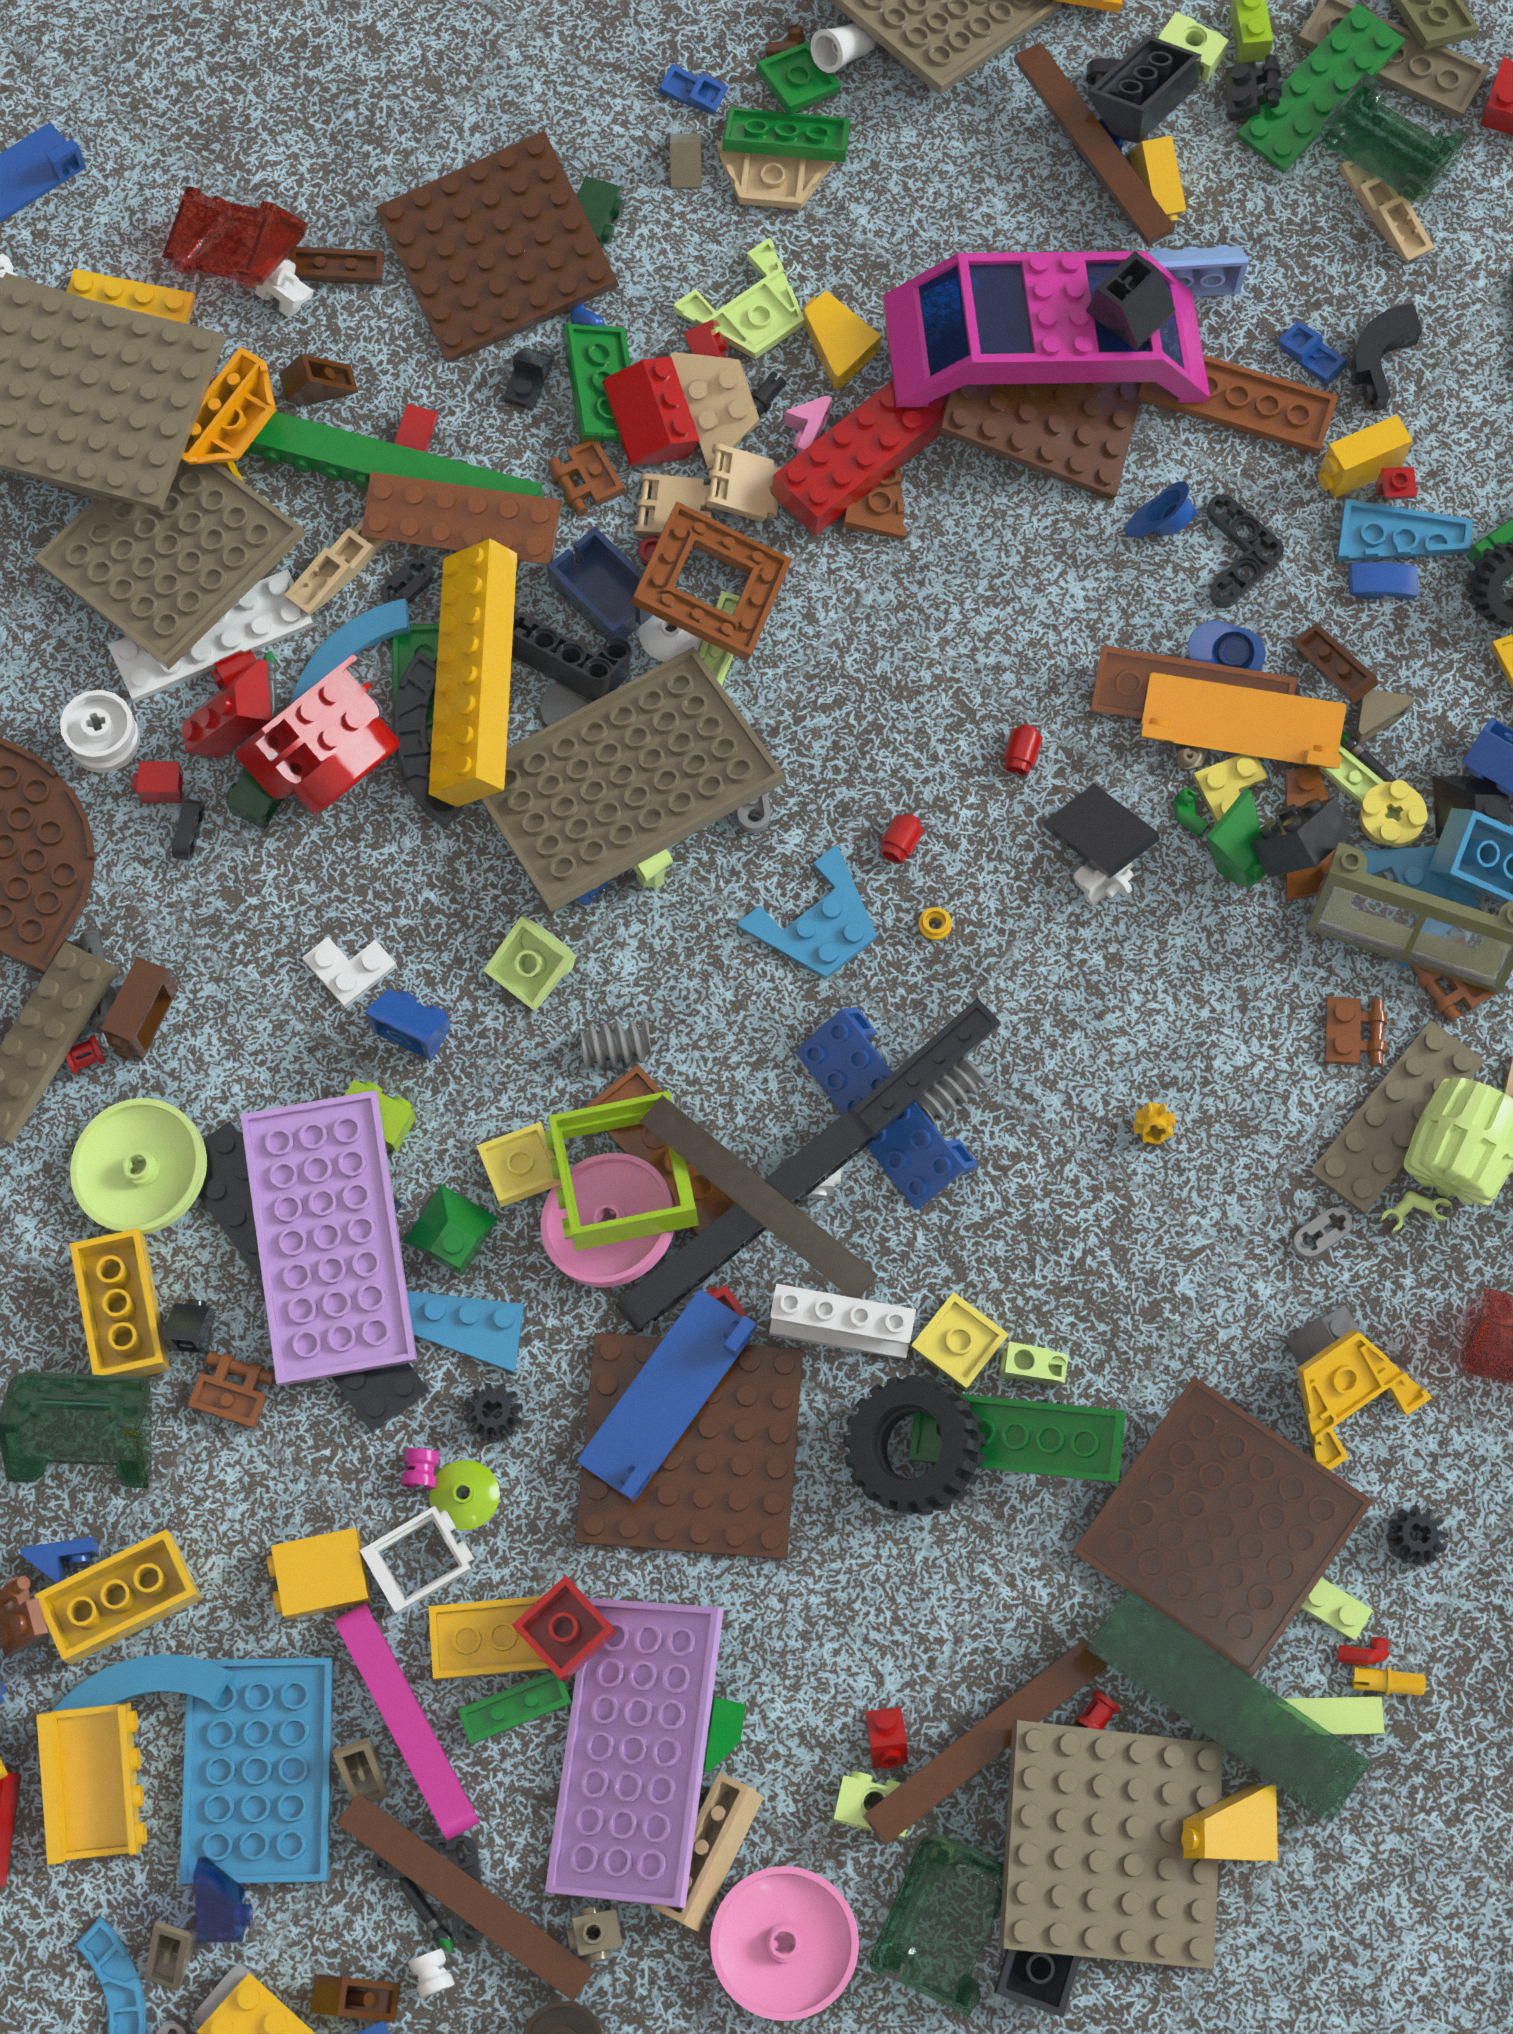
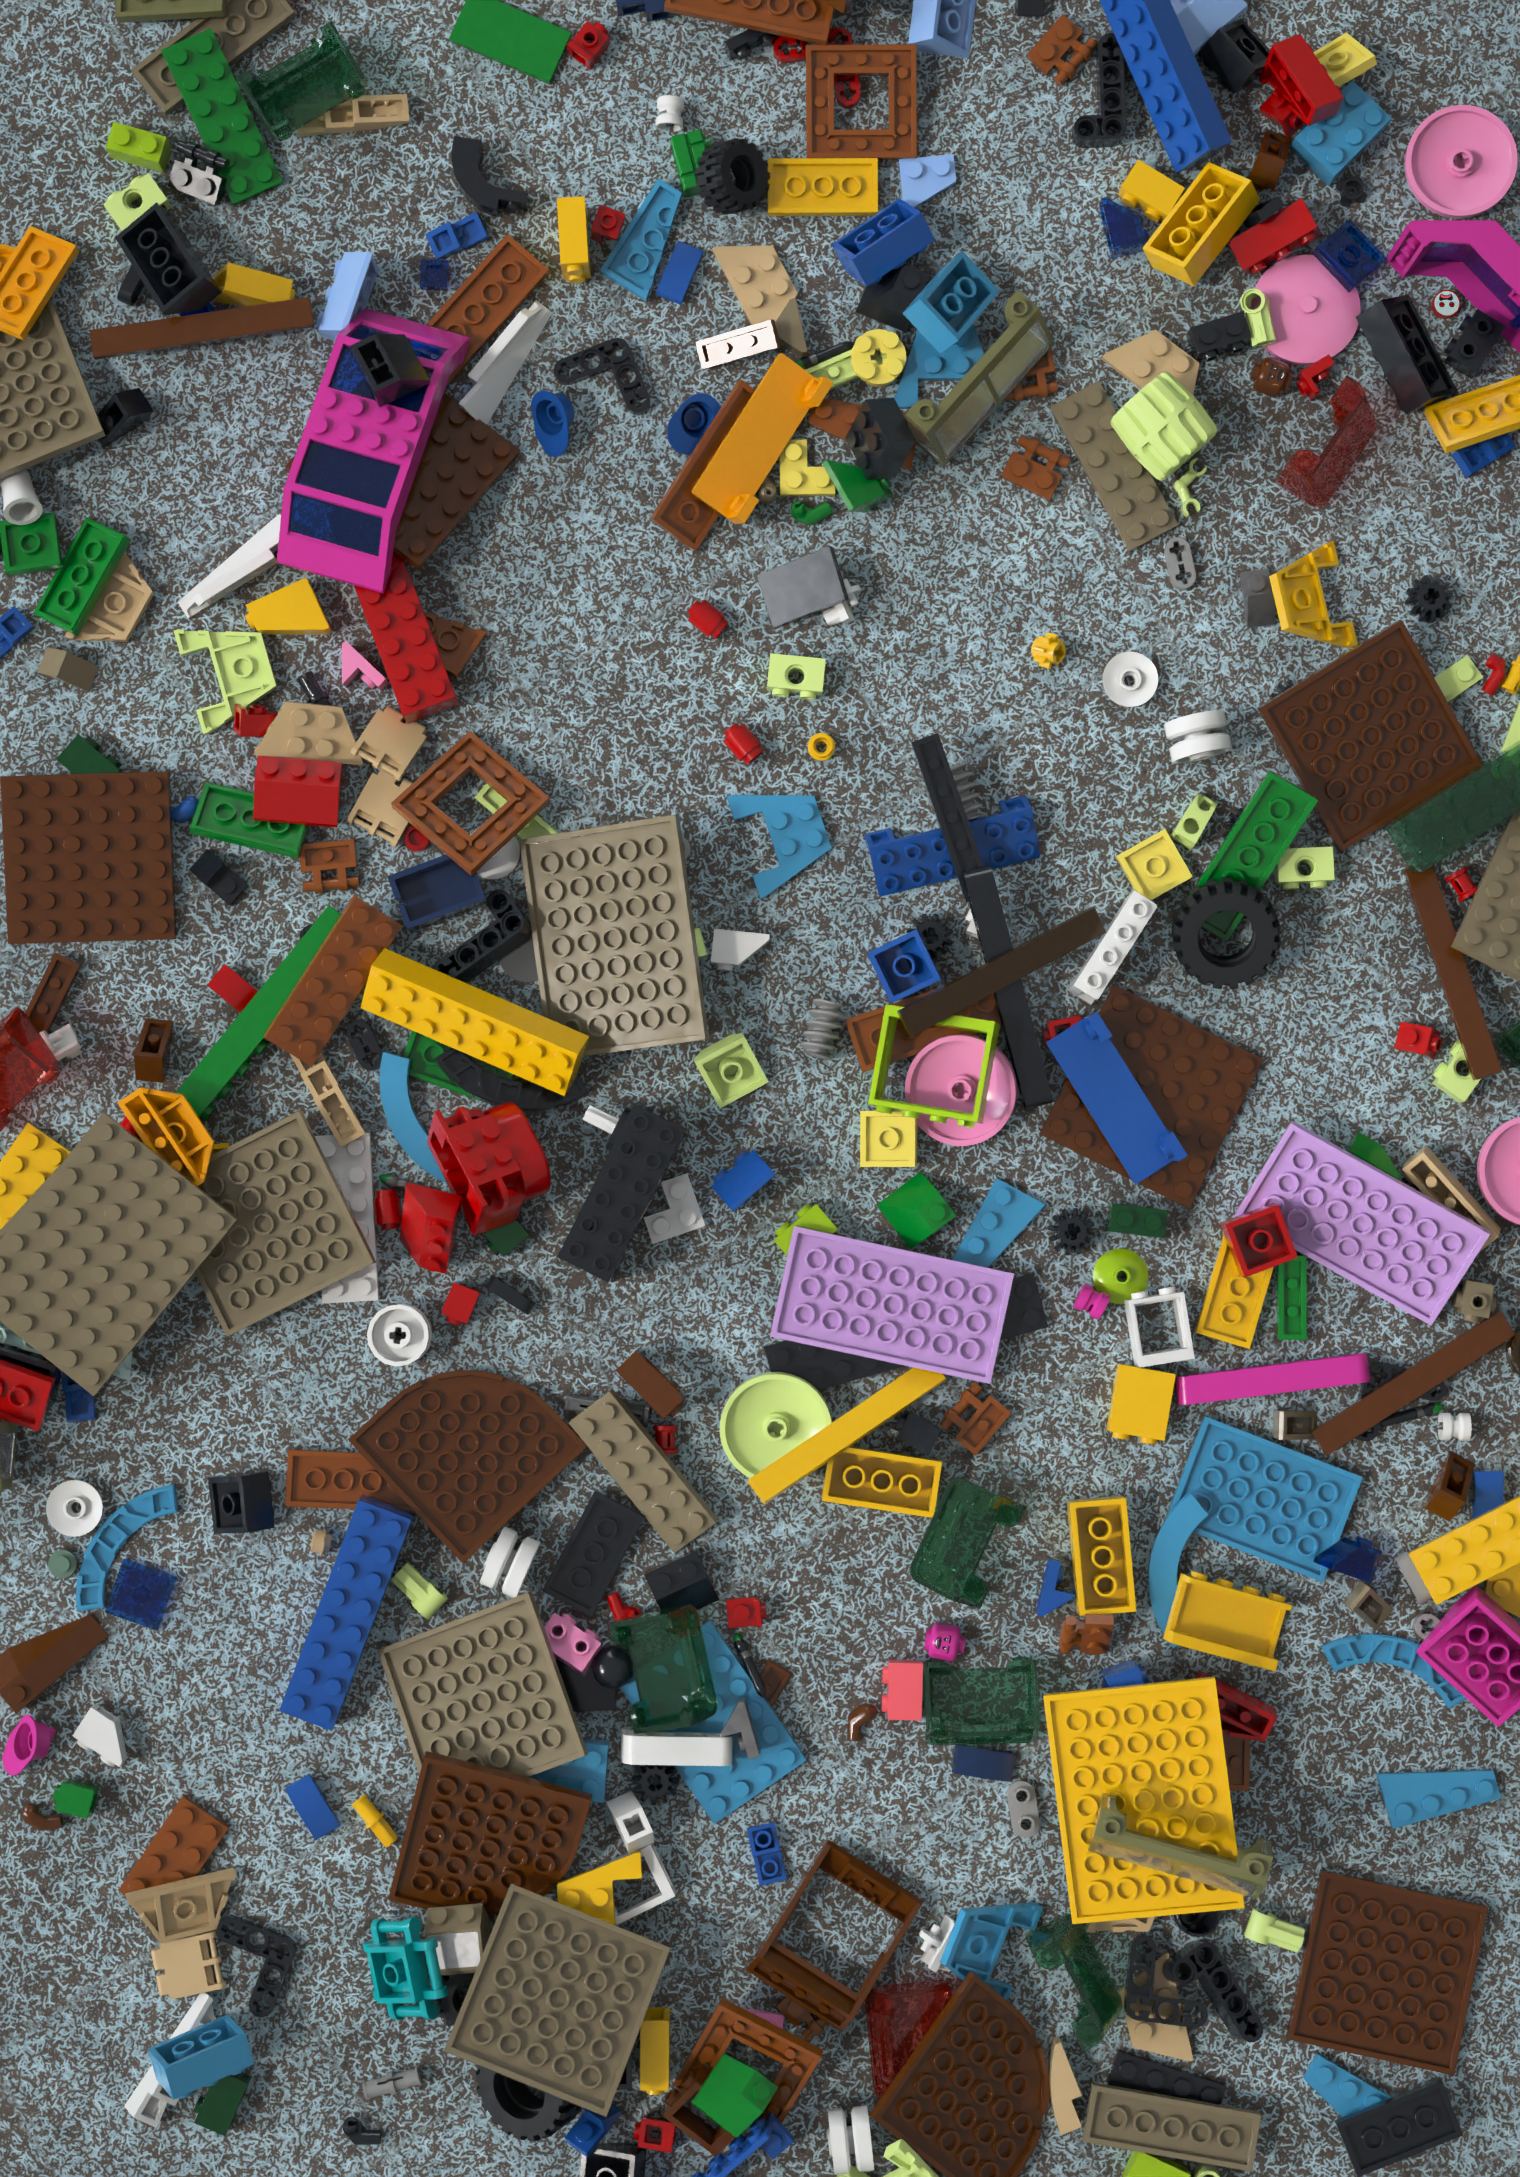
camera: 70 degrees left, 15 degrees up
(157, 1237) = (843, 1432): none -> yellow tile
(343, 891) = (637, 1162): none -> black piece
(535, 1482) = (1136, 1220): none -> dark green brick
(669, 916) = (735, 947): none -> white slope
(722, 1097) = (904, 966): none -> blue slope
(783, 1125) = (938, 932): none -> black gear
(852, 273) = (235, 571): none -> white wedge
(970, 110) = (123, 414): none -> black slope
(1003, 846) = (811, 669): none -> yellowish green brick
(1034, 1492) = (1320, 863): none -> yellowish green brick
(1130, 1324) = (1197, 736): none -> white wheel
(1172, 1213) = (1132, 665): none -> white dish
(1201, 443) = (502, 362): none -> white wedge
(1259, 344) = (434, 275): none -> clear blue plate
(1417, 660) = (756, 280): none -> tan wing

